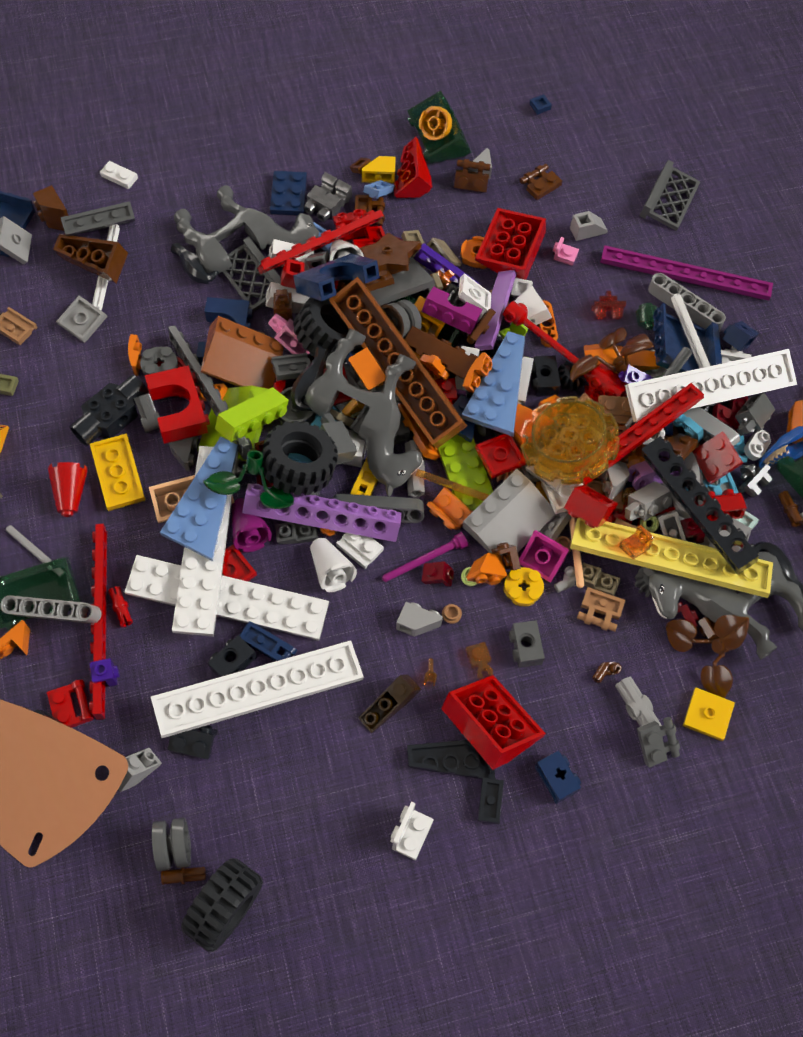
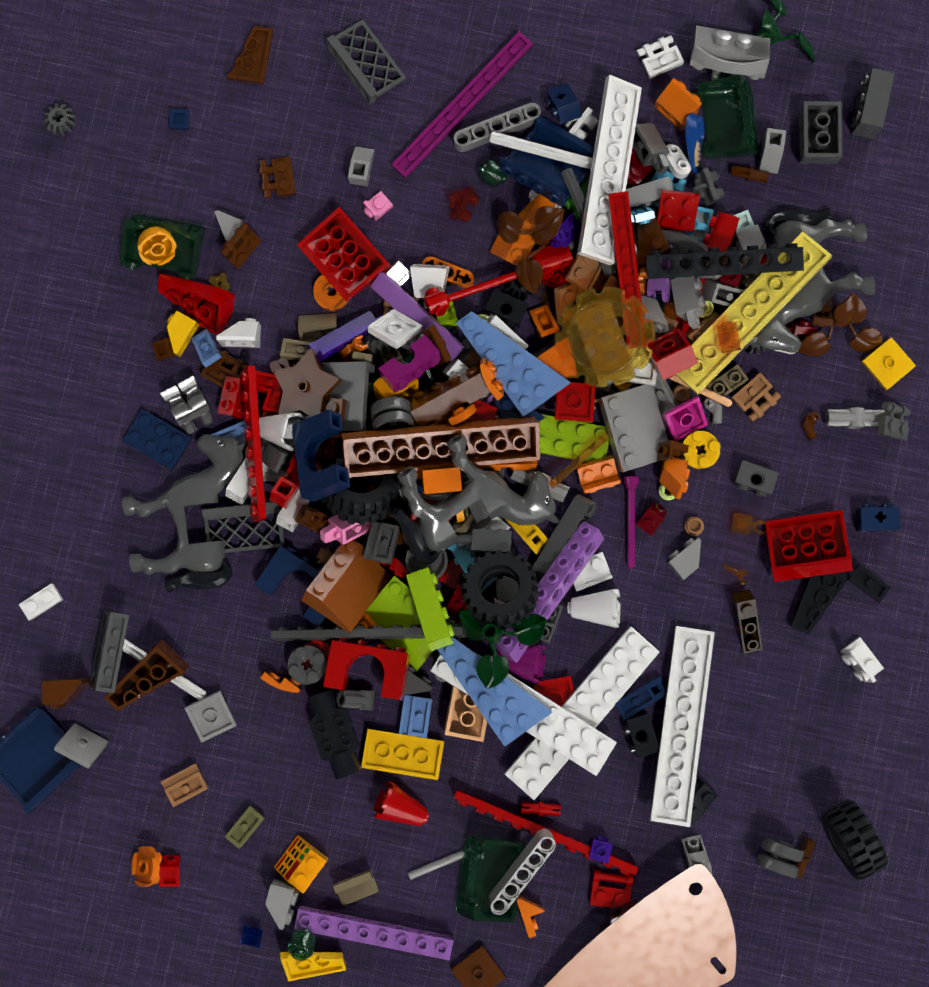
camera: 60 degrees left, 20 degrees up
(156, 466) = (415, 716): none -> medium blue plate
(403, 205) = (241, 334): none -> white slope
(436, 179) = (221, 278): none -> clear yellow plate
(489, 37) = (54, 116): none -> dark grey gear
(616, 130) = (253, 60): none -> reddish brown wing

